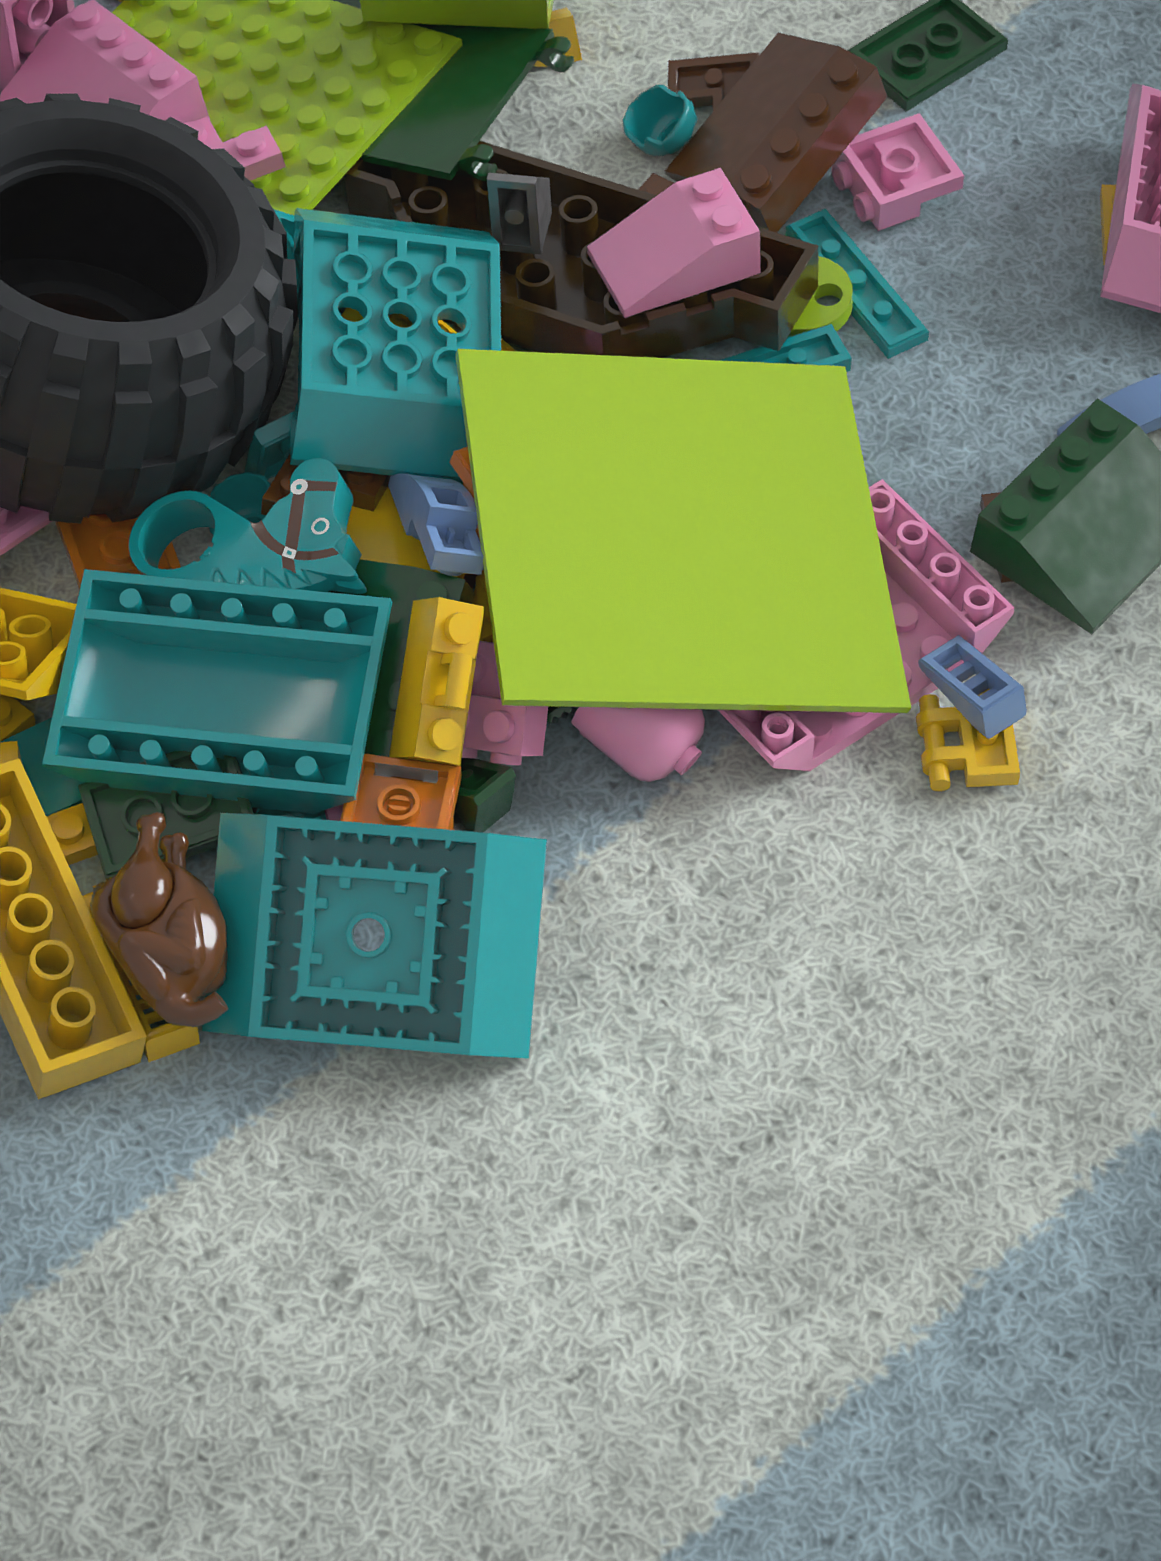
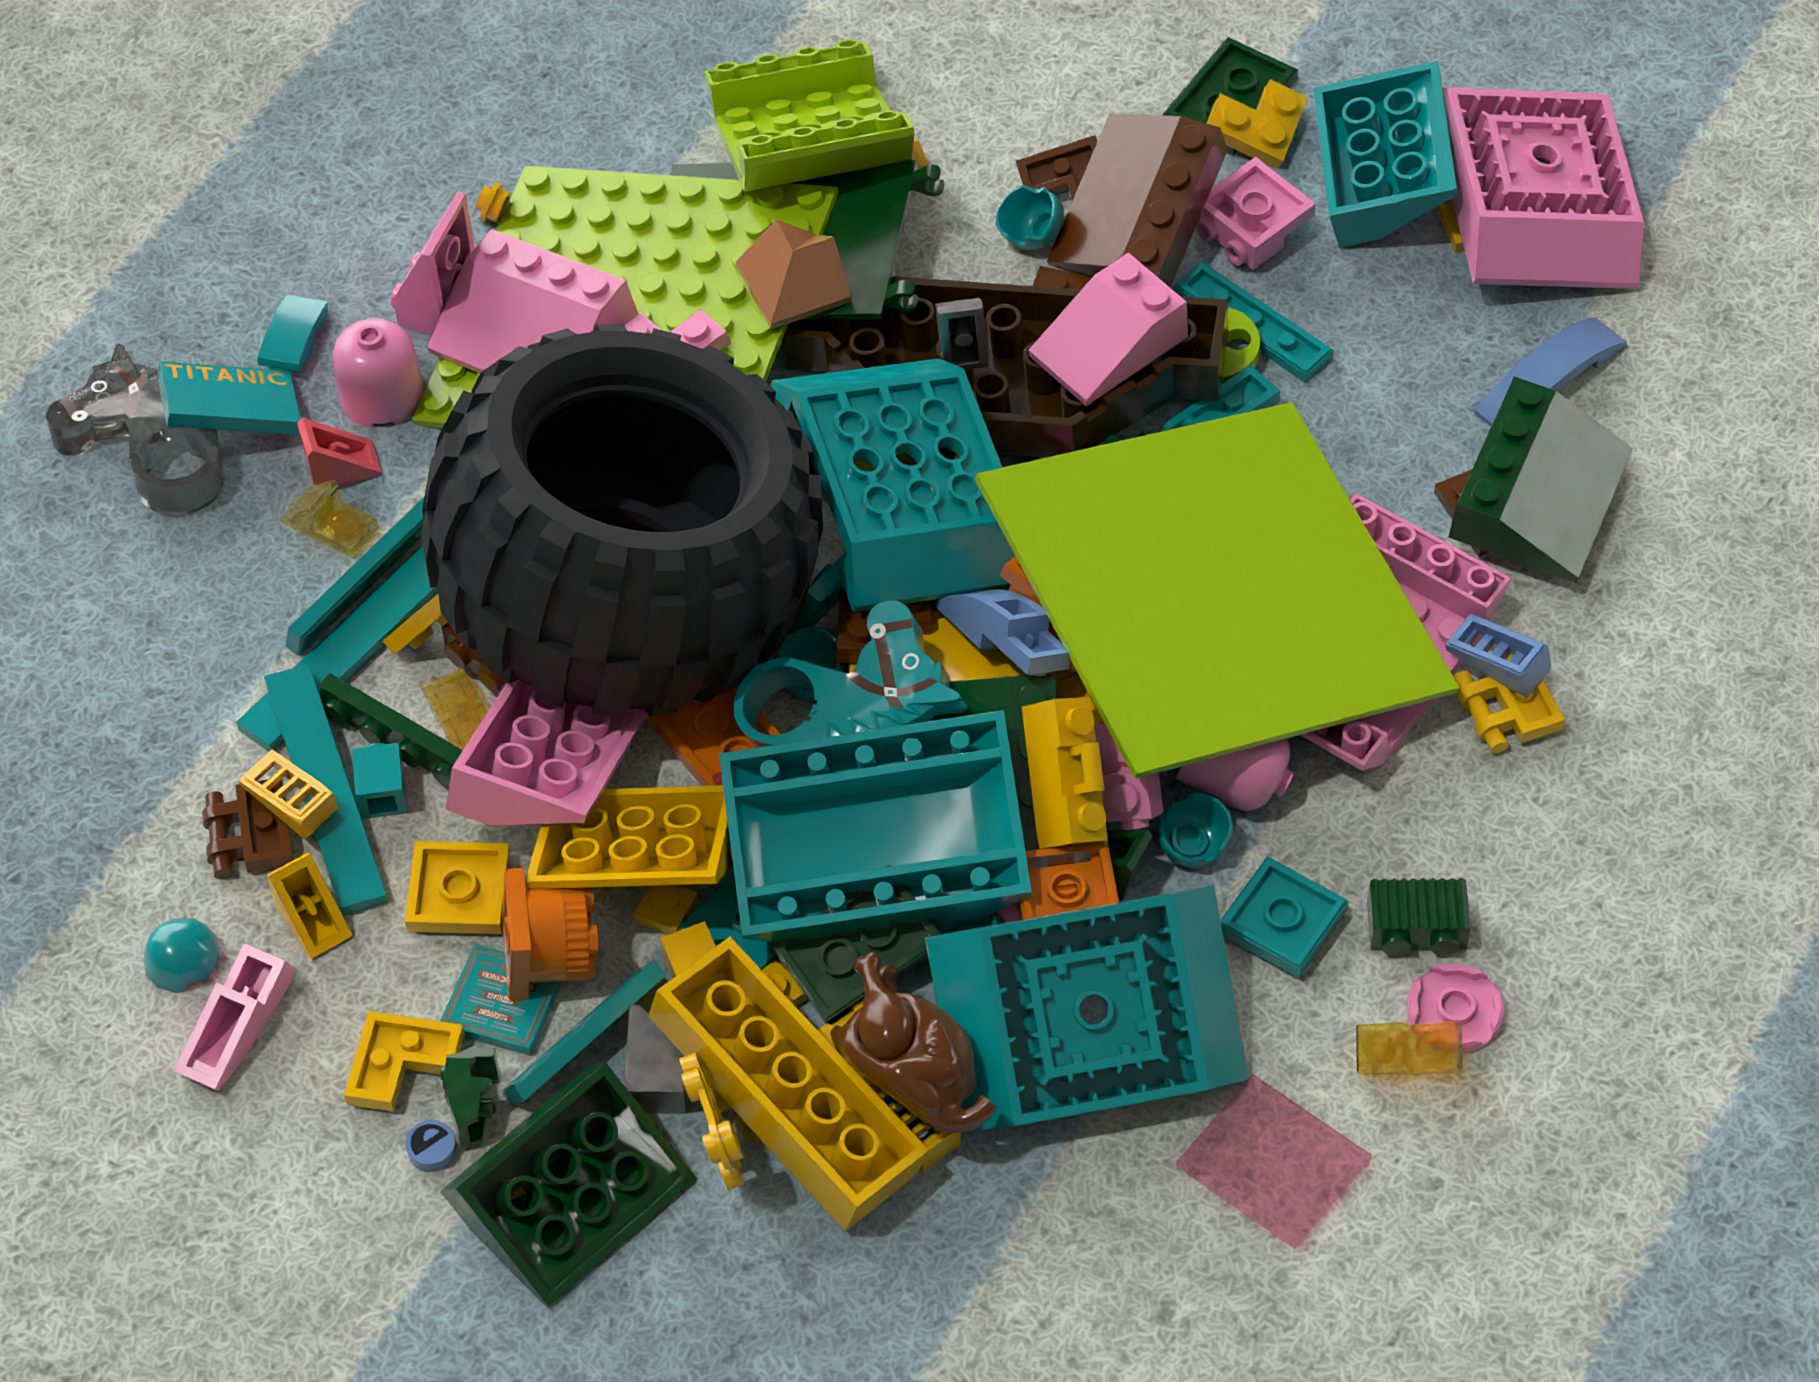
camera: 15 degrees left, 0 degrees up
(373, 112) = (793, 274): none -> nougat slope
(521, 1152) = (1273, 1161): none -> clear pink piece
(573, 785) = (1195, 830): none -> teal hair
(633, 899) = (1283, 916): none -> teal plate
(711, 1073) = (1409, 1049): none -> clear yellow slope
(777, 936) = (1418, 915): none -> dark green brick
(778, 1063) = (1479, 1021): none -> bright pink tile
(941, 93) = (1262, 131): none -> yellow plate
(1054, 137) = (1384, 150): none -> teal slope

